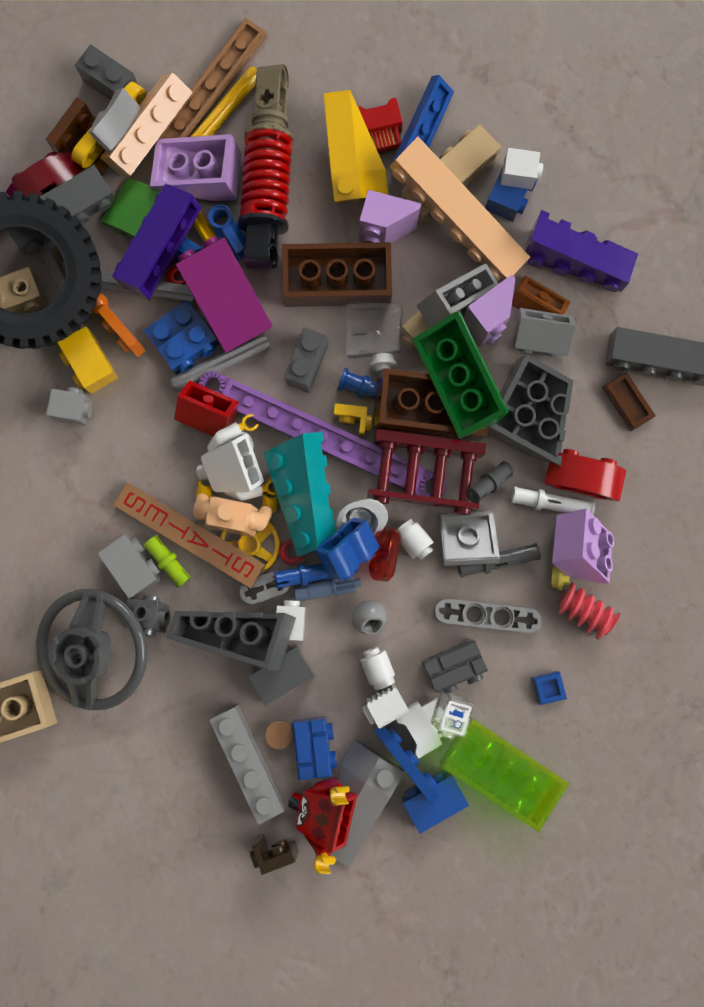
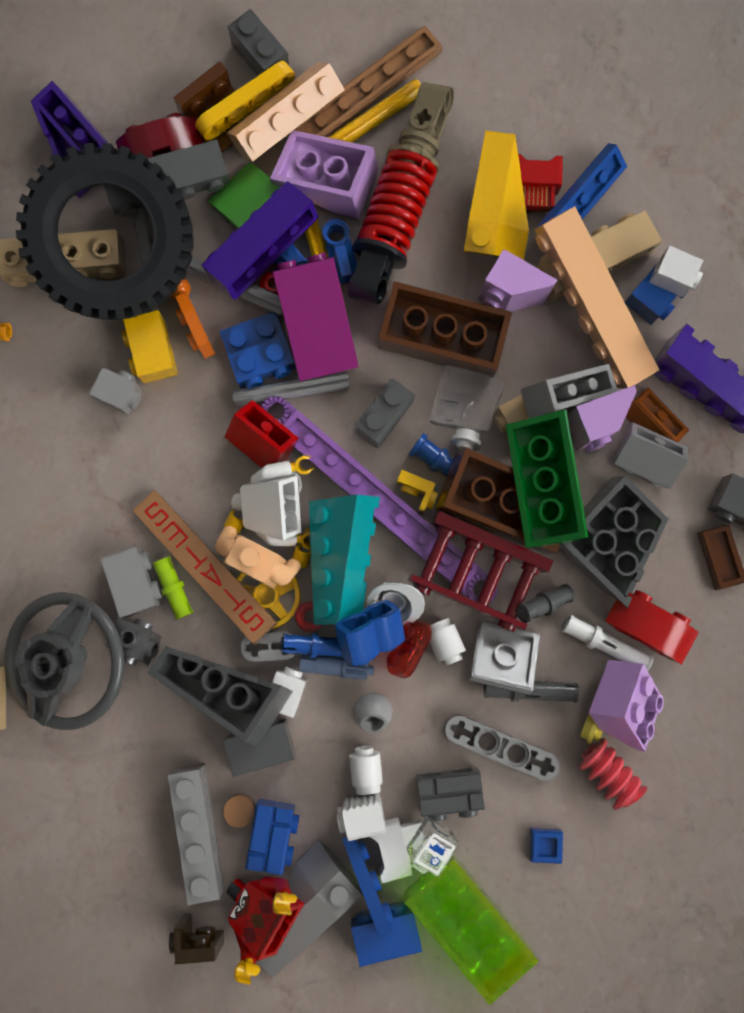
camera: 15 degrees right, 0 degrees up
(115, 120) = (254, 98): light grey slope -> none

